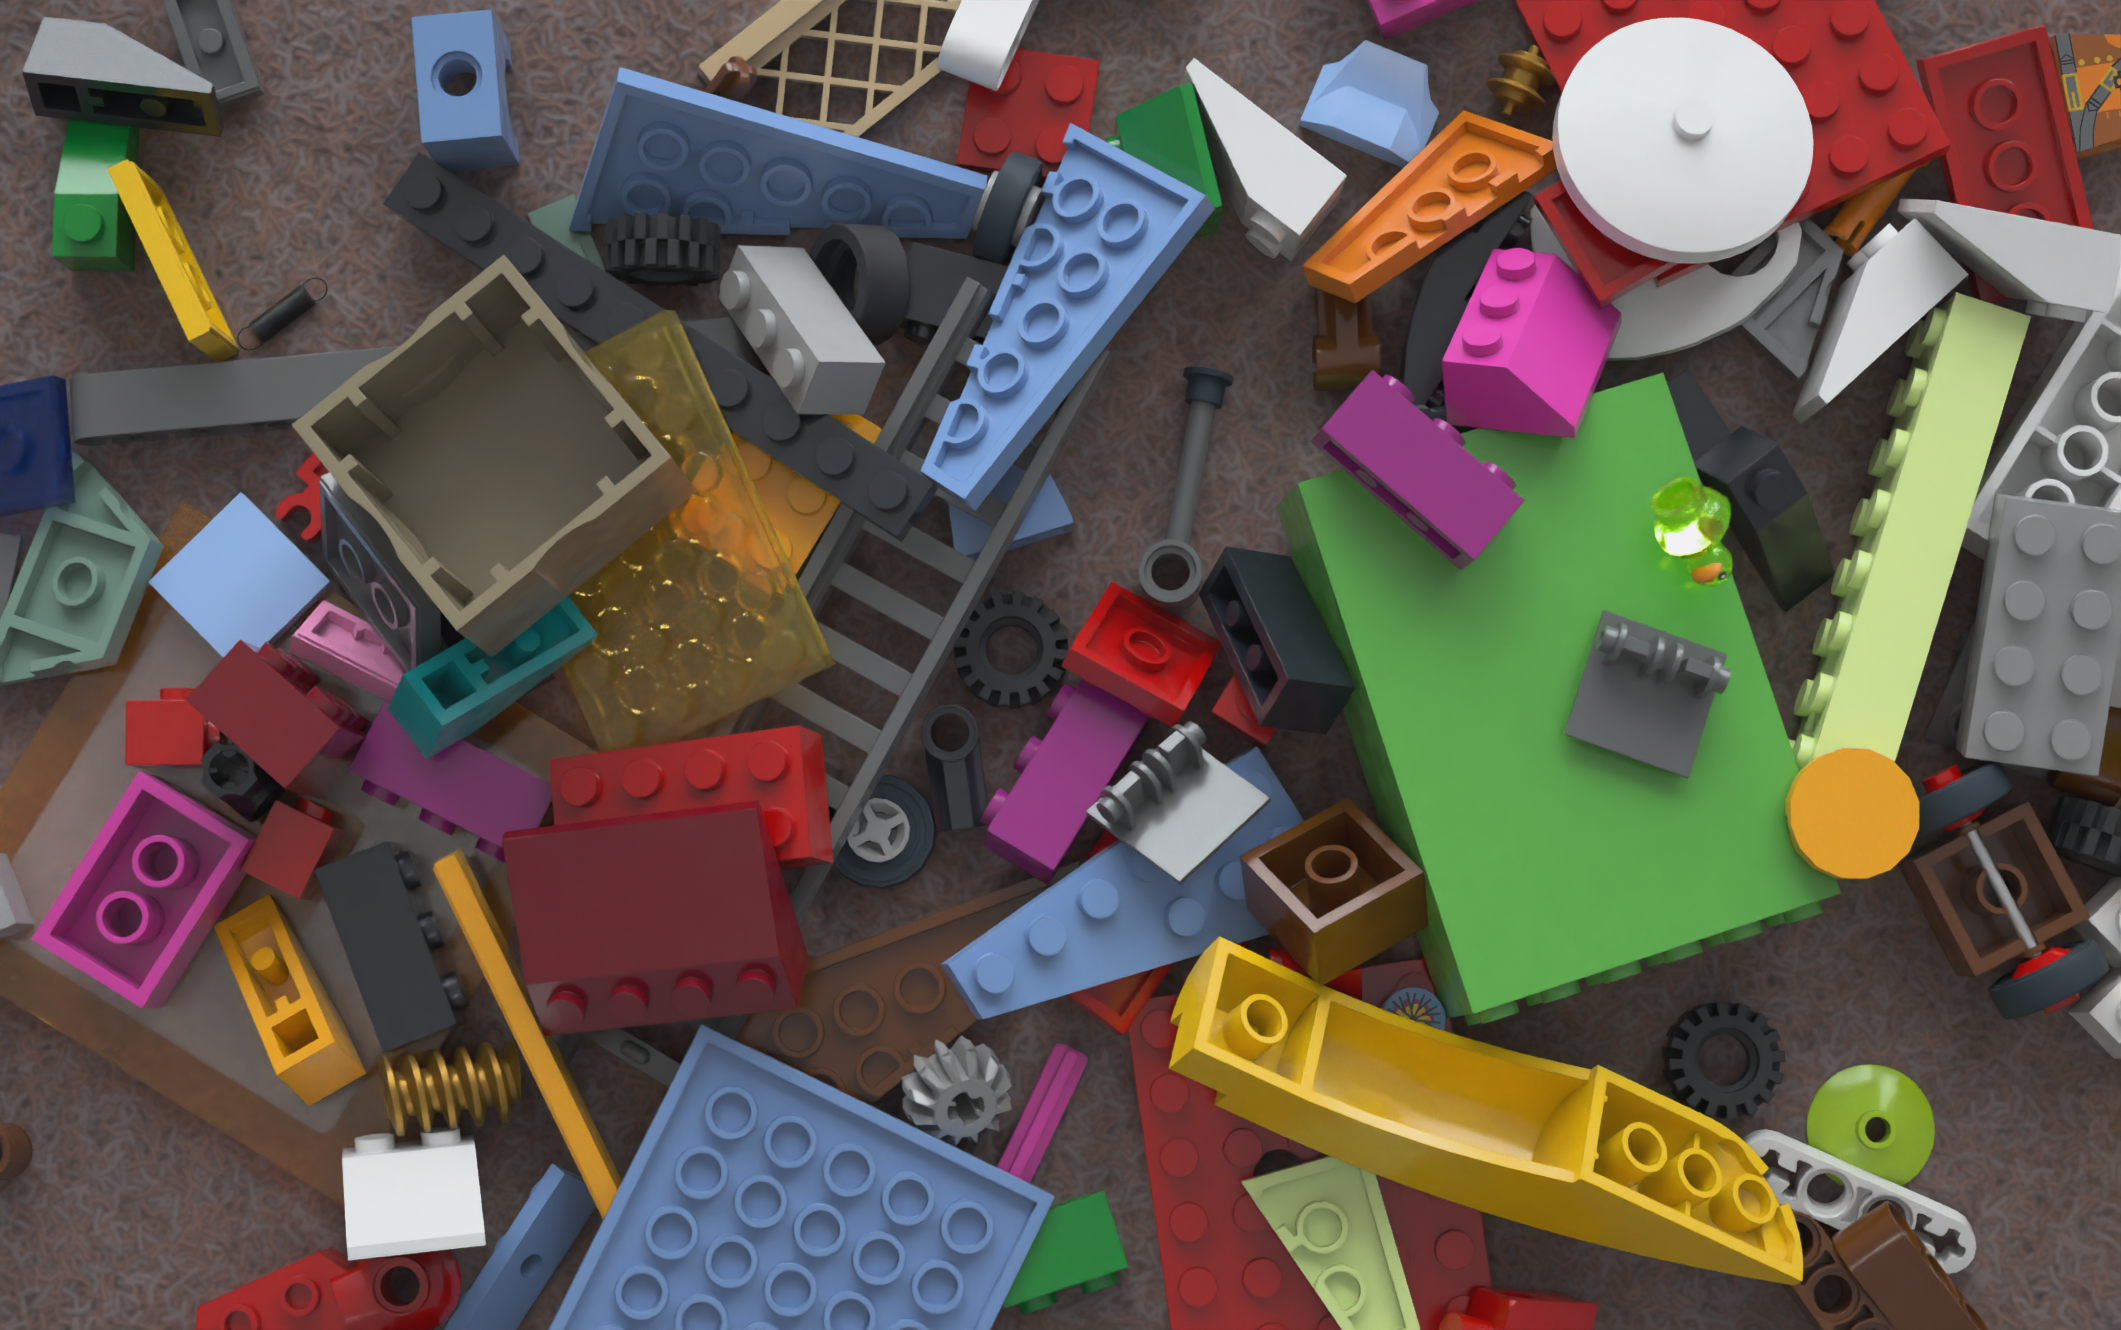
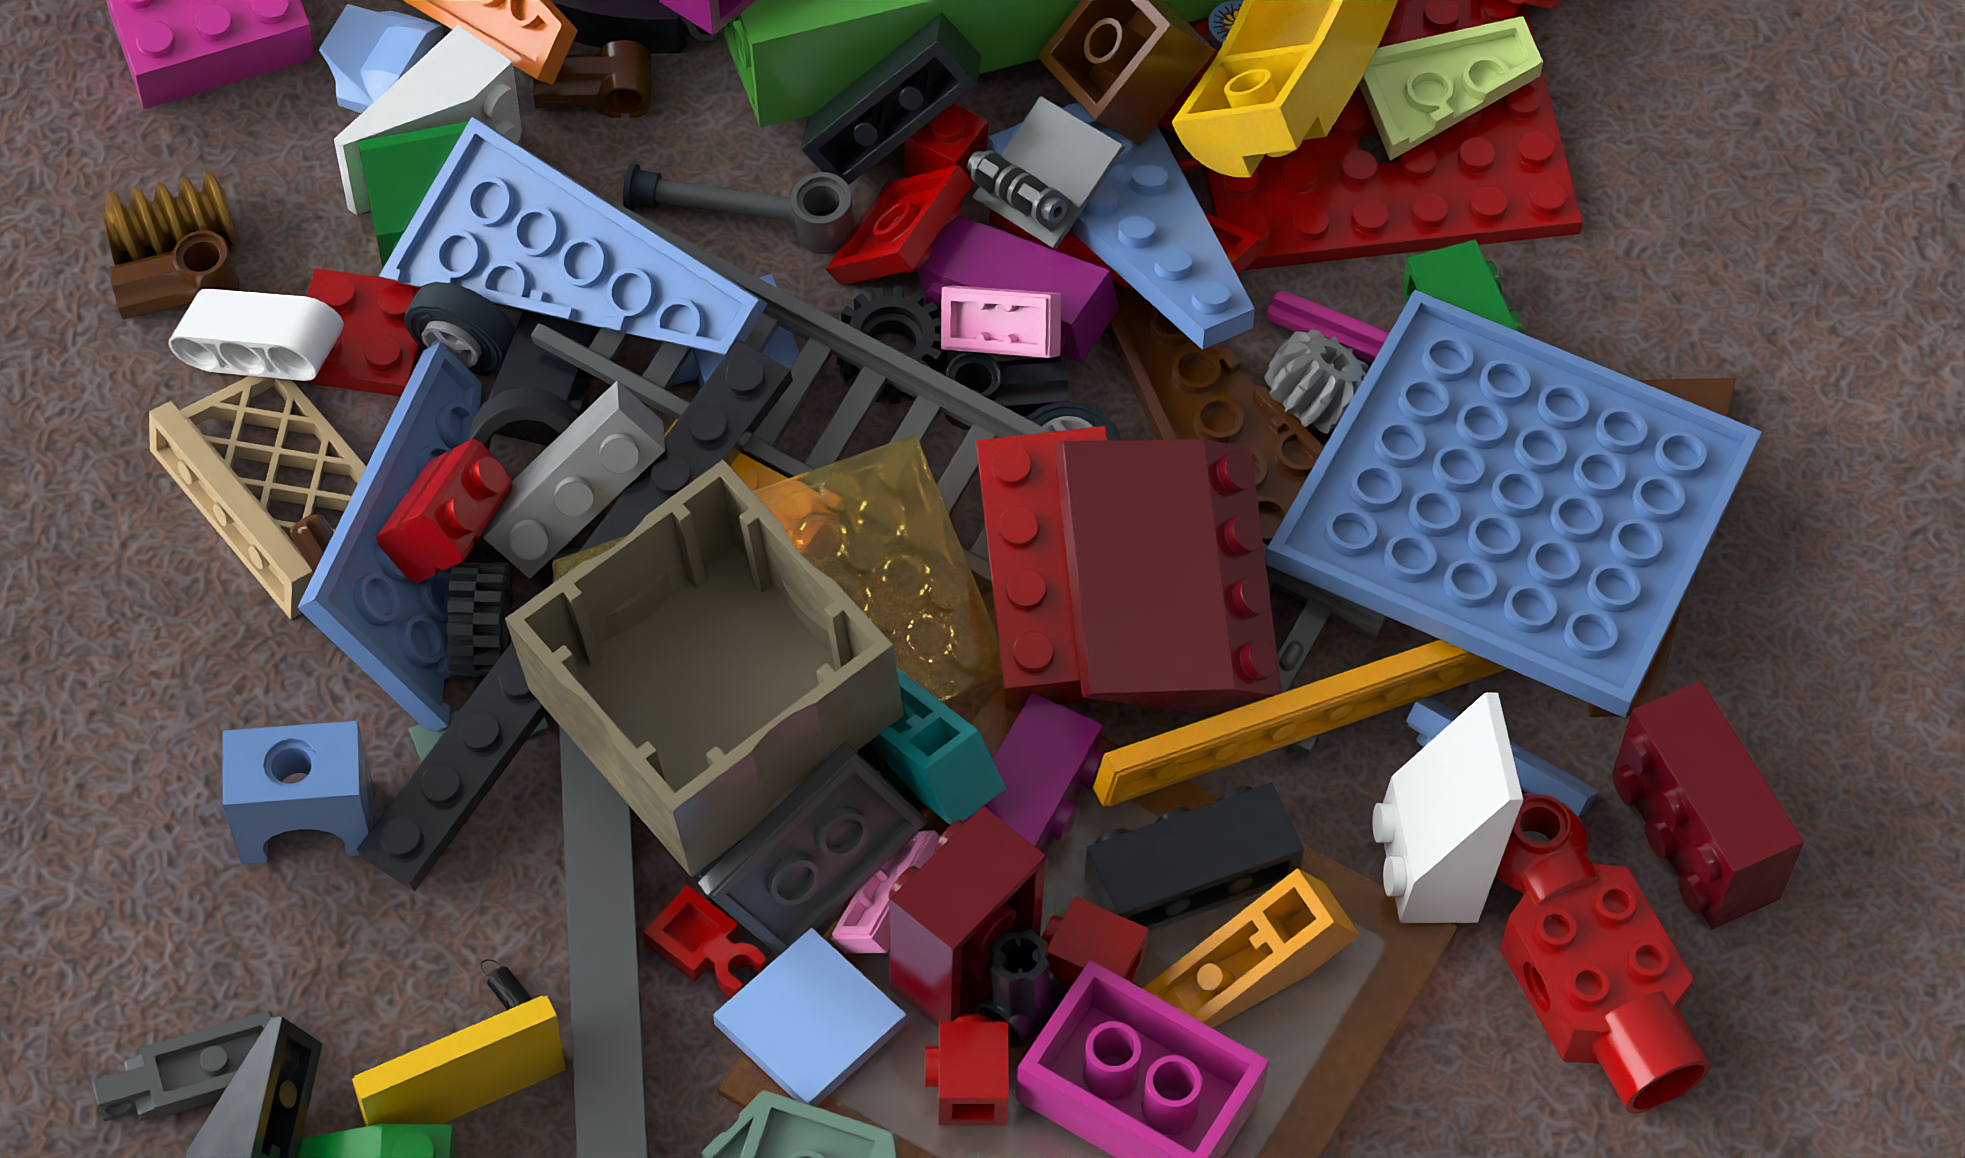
camera: 90 degrees left, 25 degrees down
(451, 1087) = (1334, 807): pearl gold piece -> none
(763, 205) = (444, 511): none -> red brick
(996, 757) = (1001, 321): none -> bright pink plate

